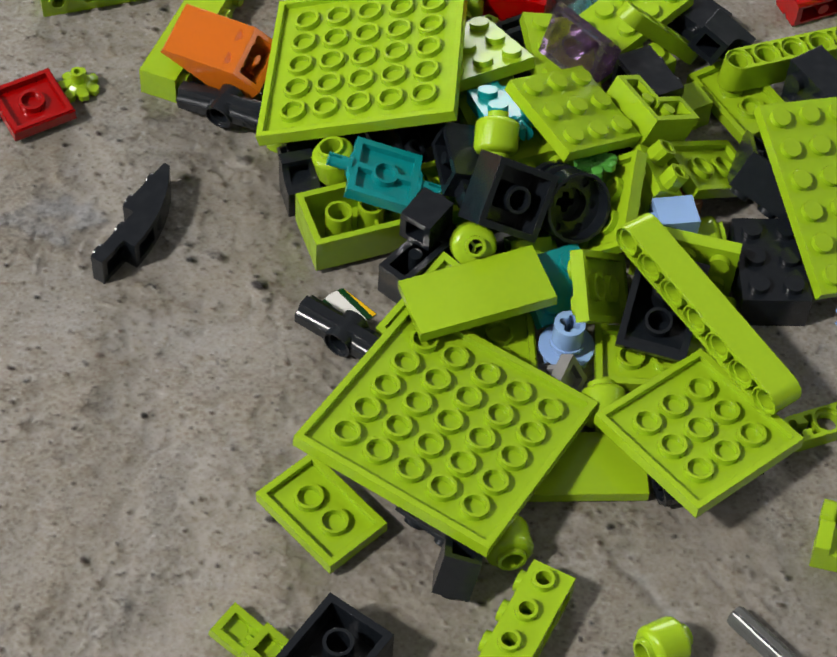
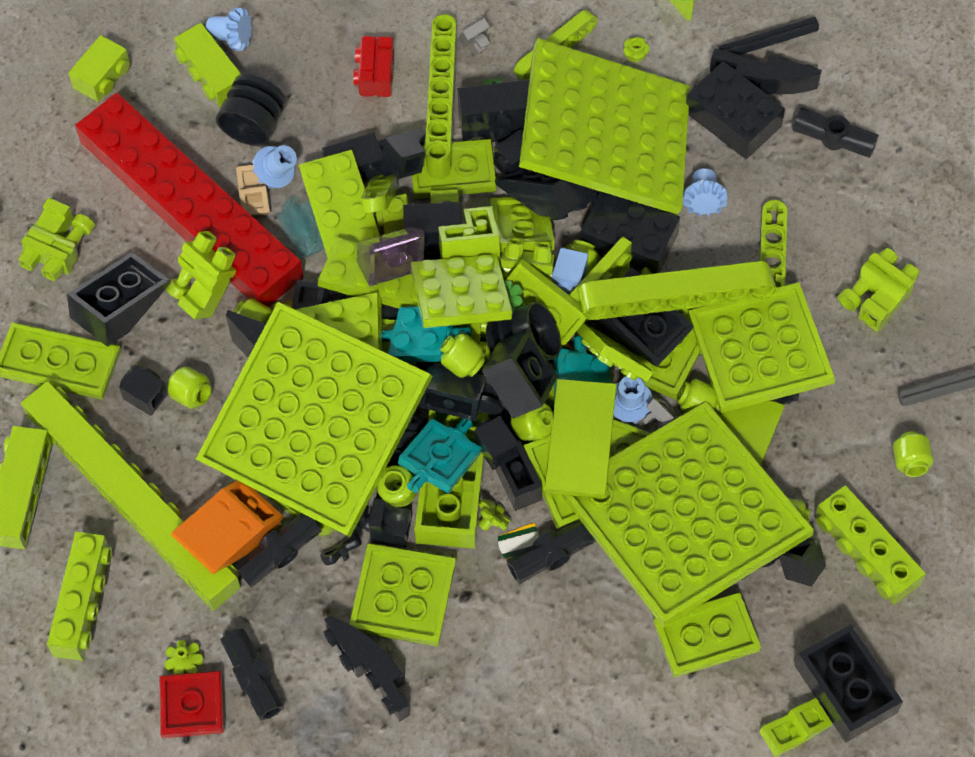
camera: 60 degrees left, 10 degrees up
(84, 137) = (252, 674): none -> black piece
(230, 226) = (403, 594): none -> lime plate
(254, 160) = (349, 543): none -> black piece
(360, 268) = (492, 515): none -> lime plant

